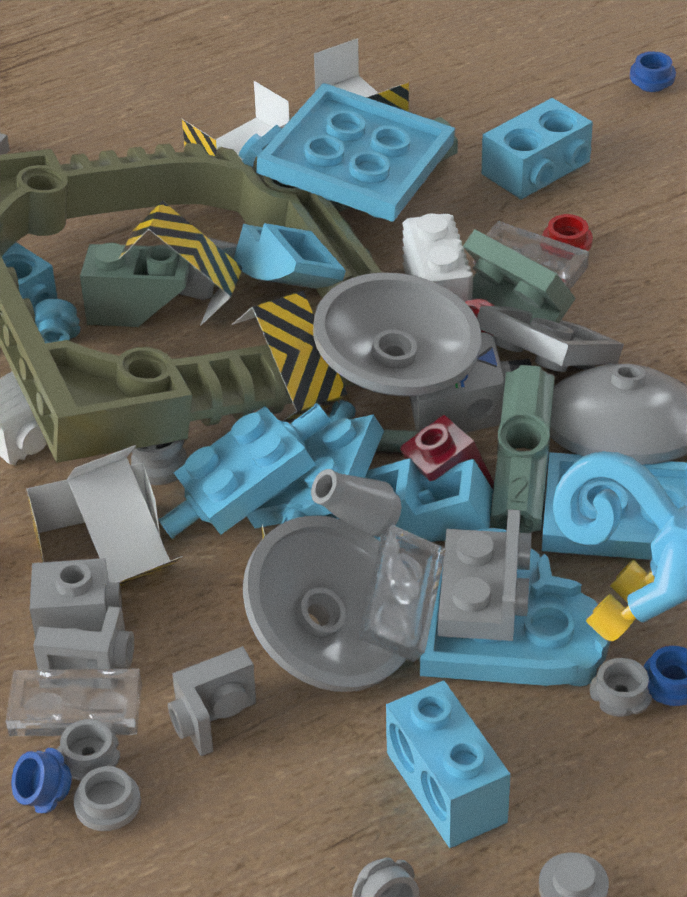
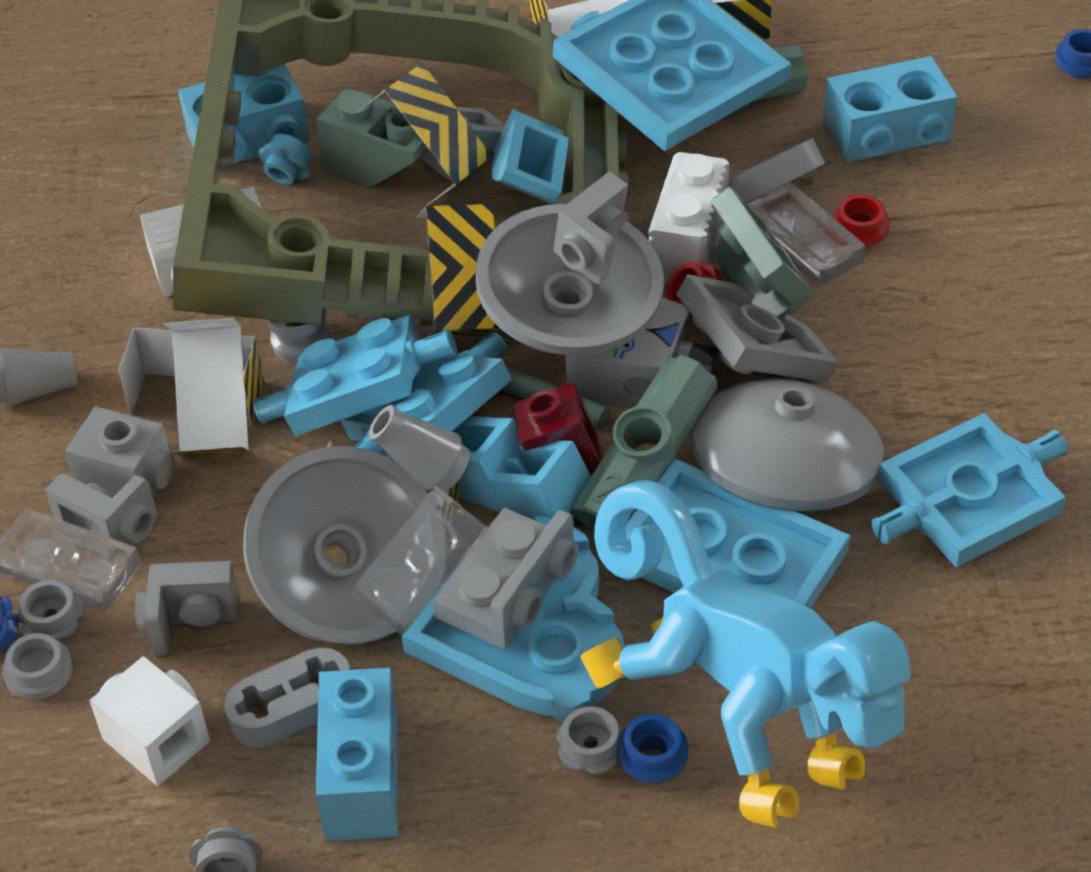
camera: 25 degrees right, 5 degrees up
(244, 802) = (151, 719): none -> white brick
(339, 737) = (284, 693): none -> light grey beam
(403, 290) = (589, 227): none -> light grey bracket
(484, 212) = (777, 170): none -> light grey beam

